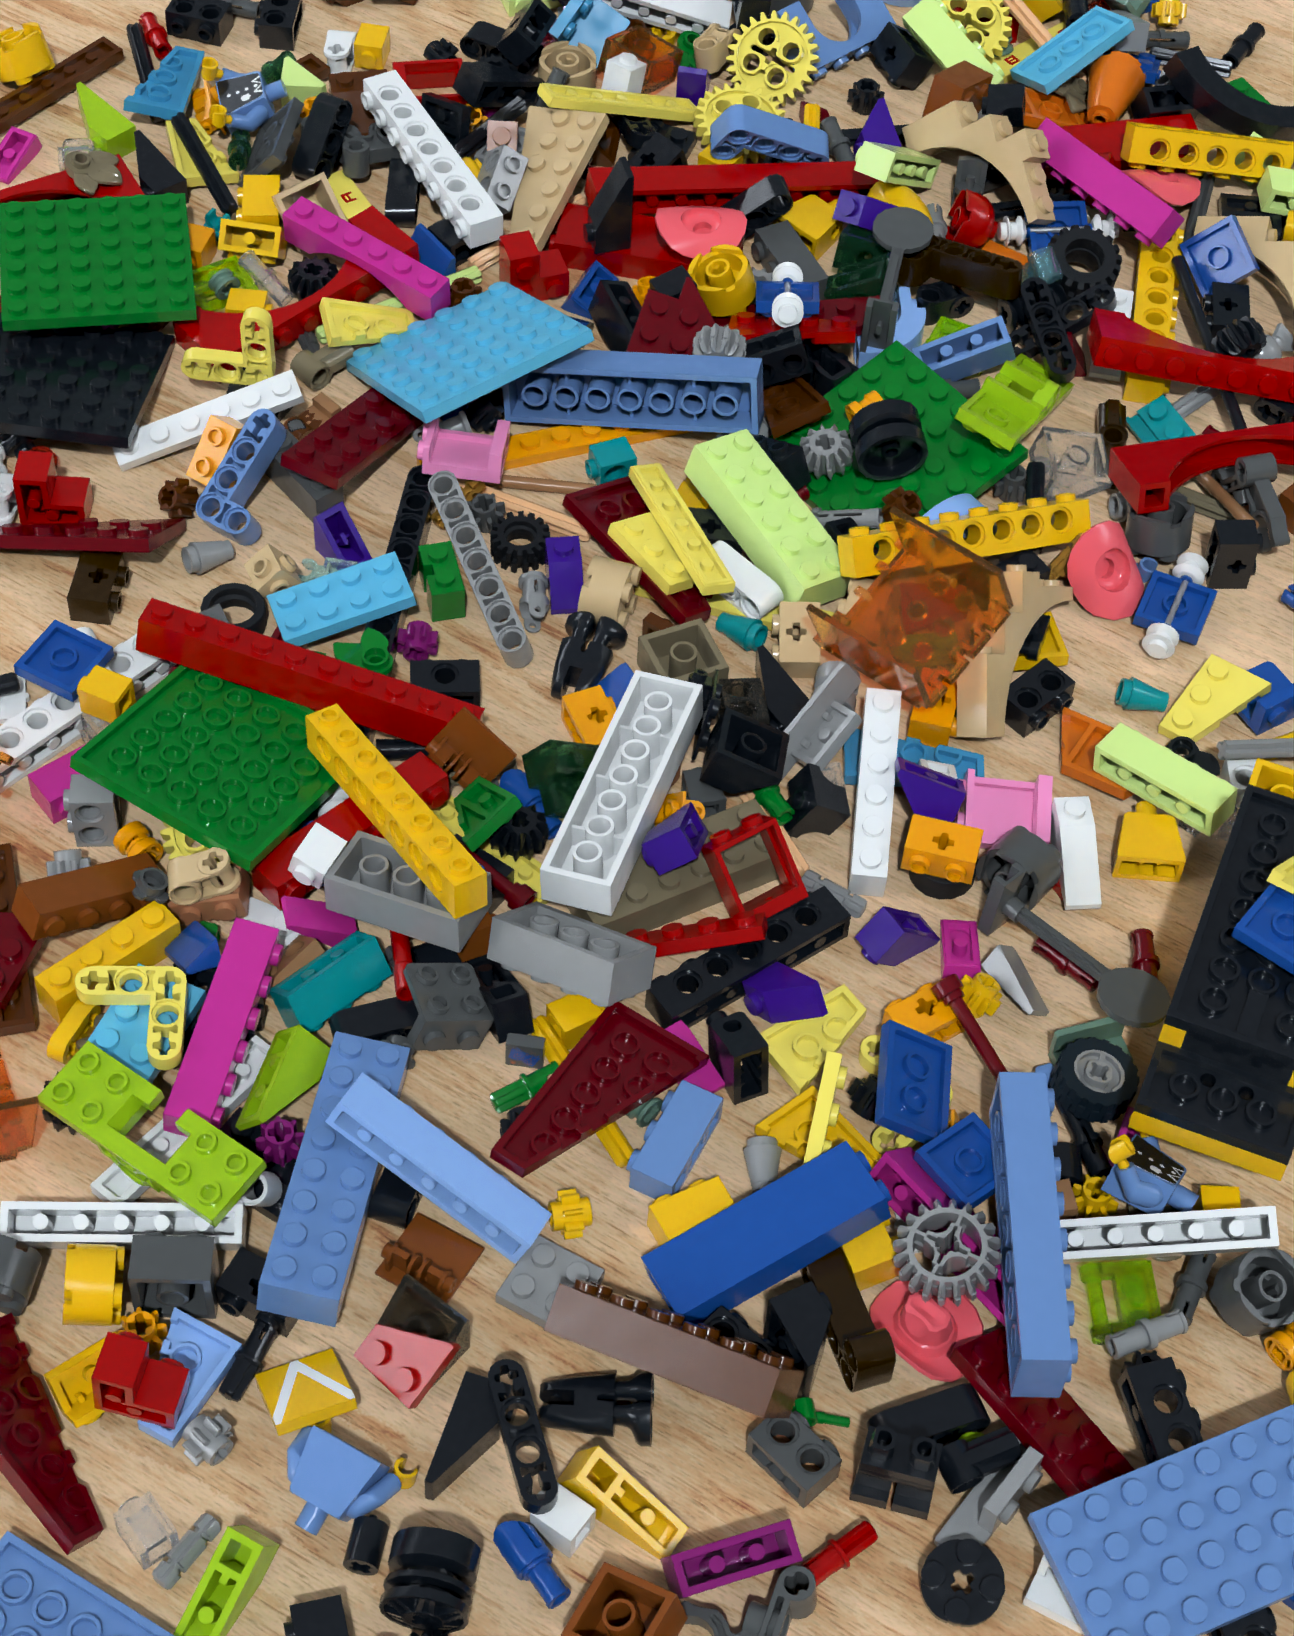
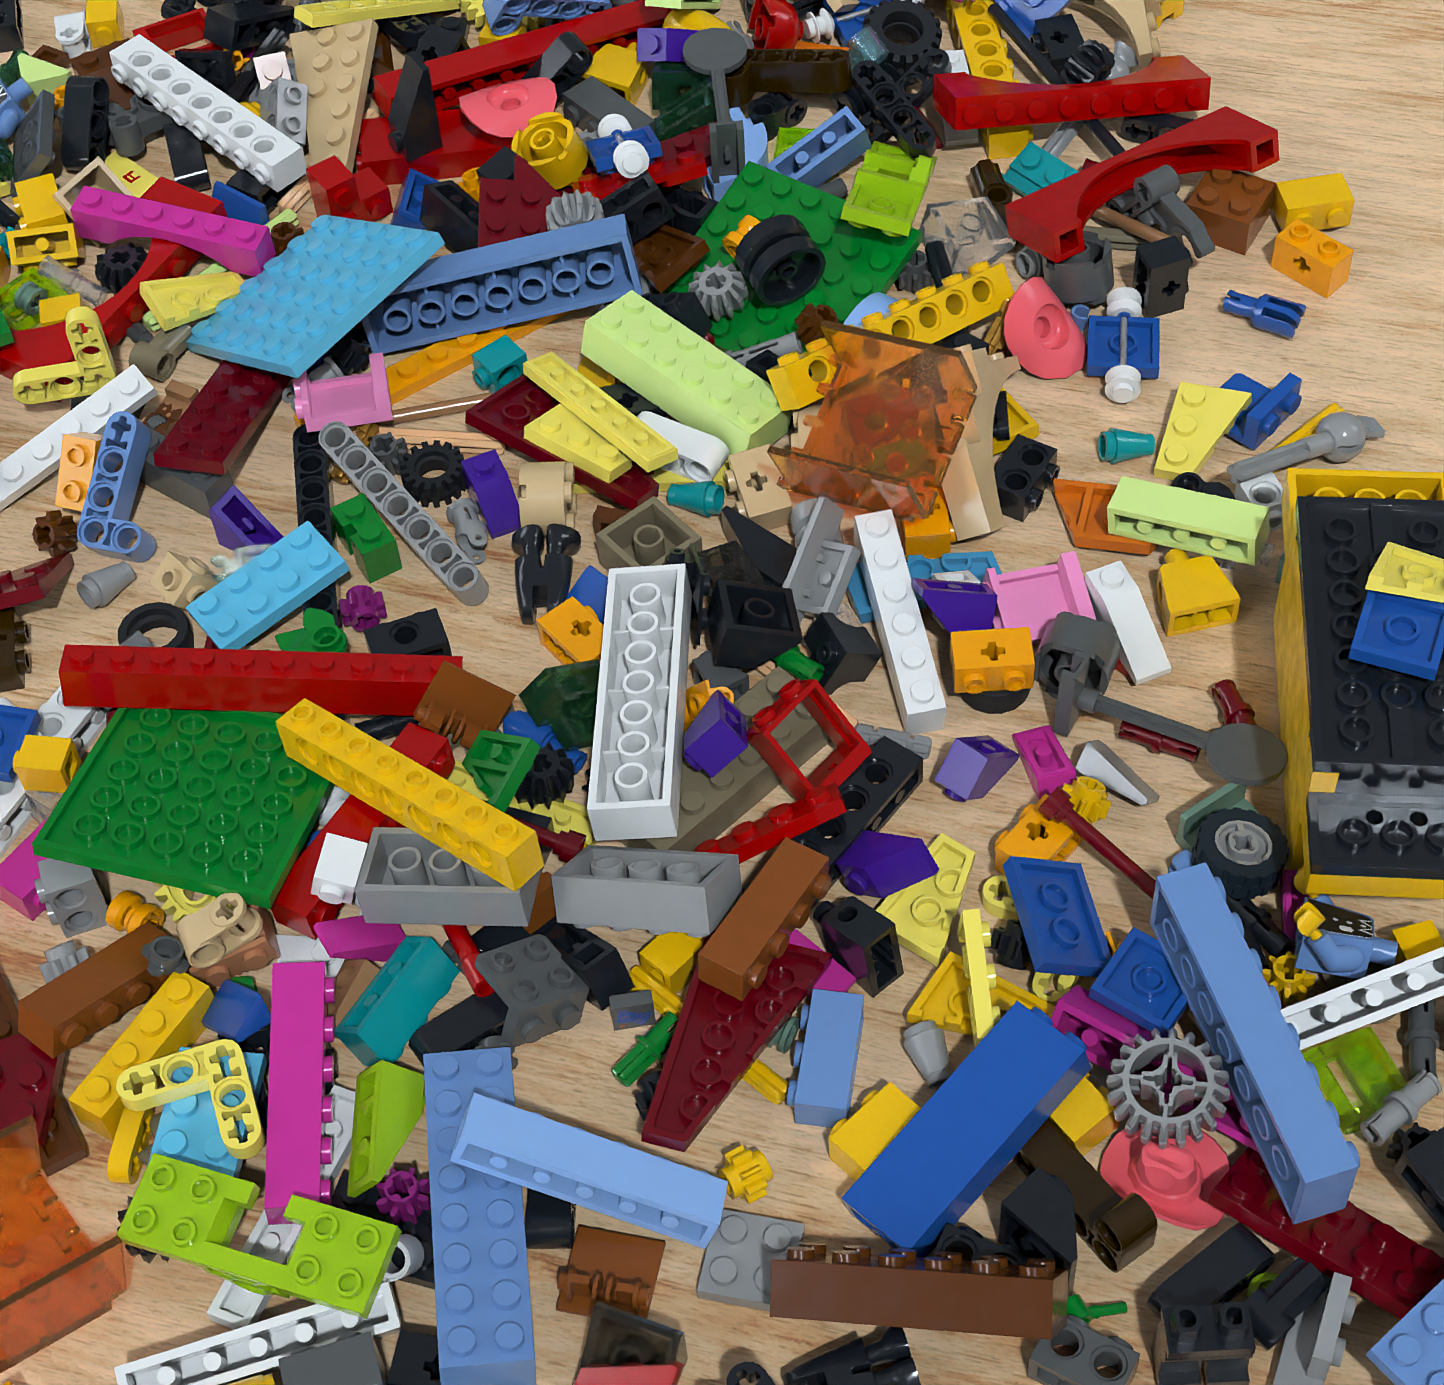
camera: 10 degrees left, 0 degrees up
(660, 1007) = (764, 919): none -> dark orange brick

